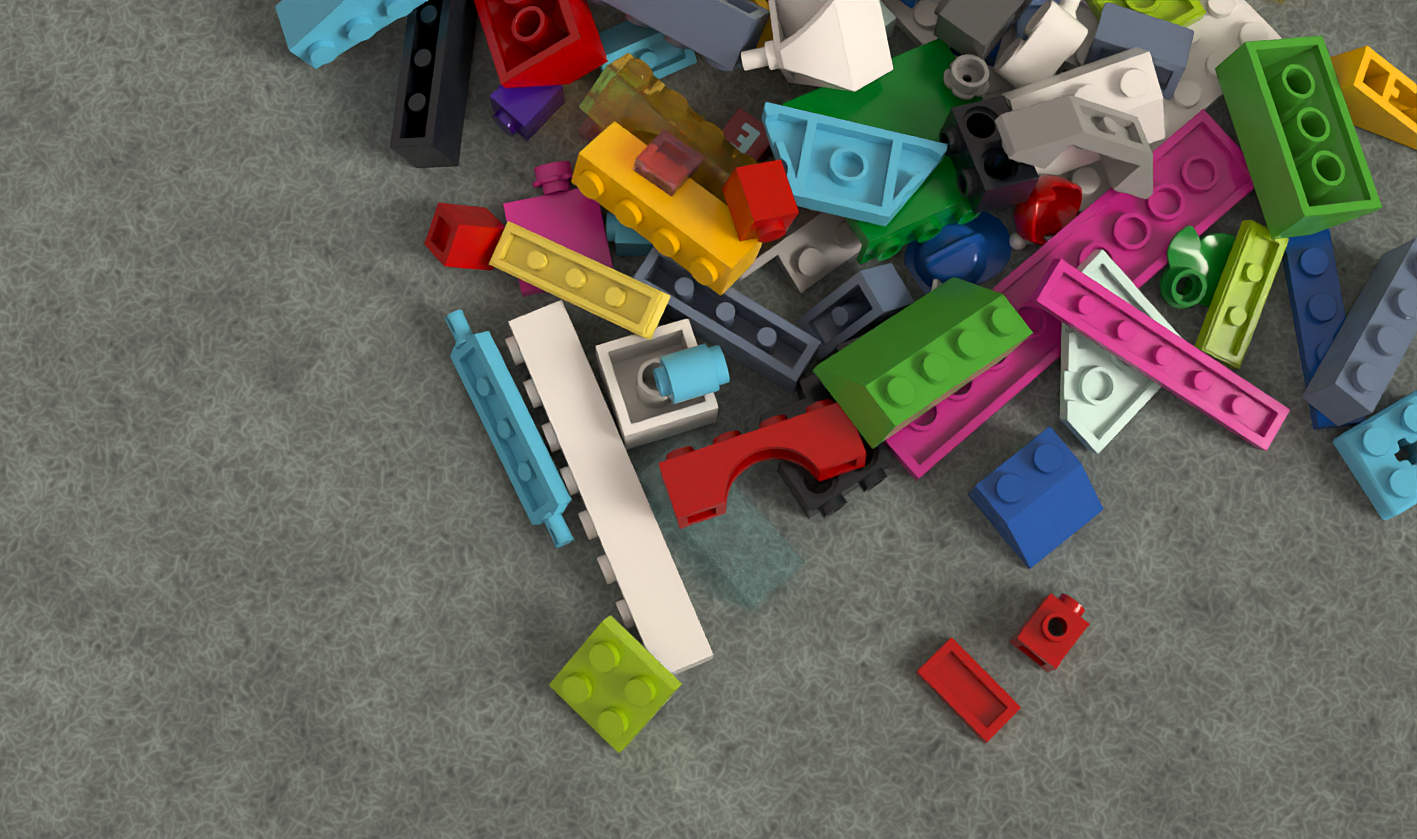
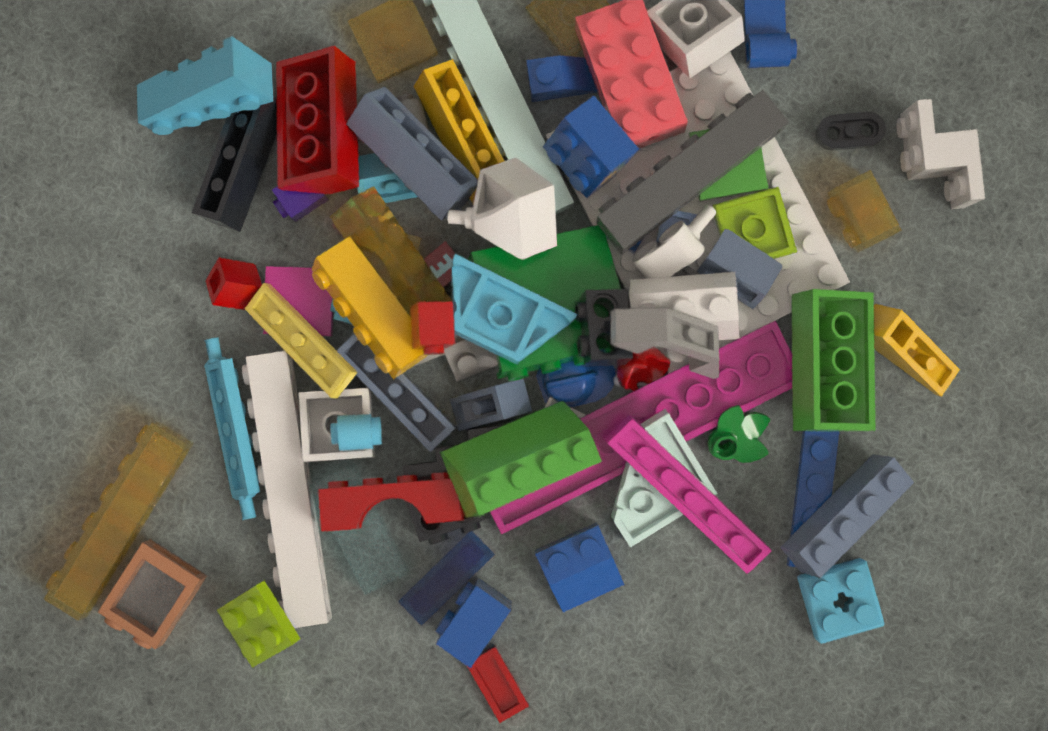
camera: 25 degrees right, 10 degrees up
(381, 591) = (118, 520): none -> clear yellow brick
(451, 688) = (151, 595): none -> nougat window
(553, 177) = (305, 255): dark pink plate -> none
(667, 163) = (376, 279): clear pink tile -> none
(857, 560) = (446, 577): none -> clear blue plate
(916, 601) = (473, 623): none -> blue brick
(971, 68) = (609, 254): light grey plate -> none
(1036, 640) = (549, 658): red brick -> none
(1241, 294) = (761, 461): lime tile -> none

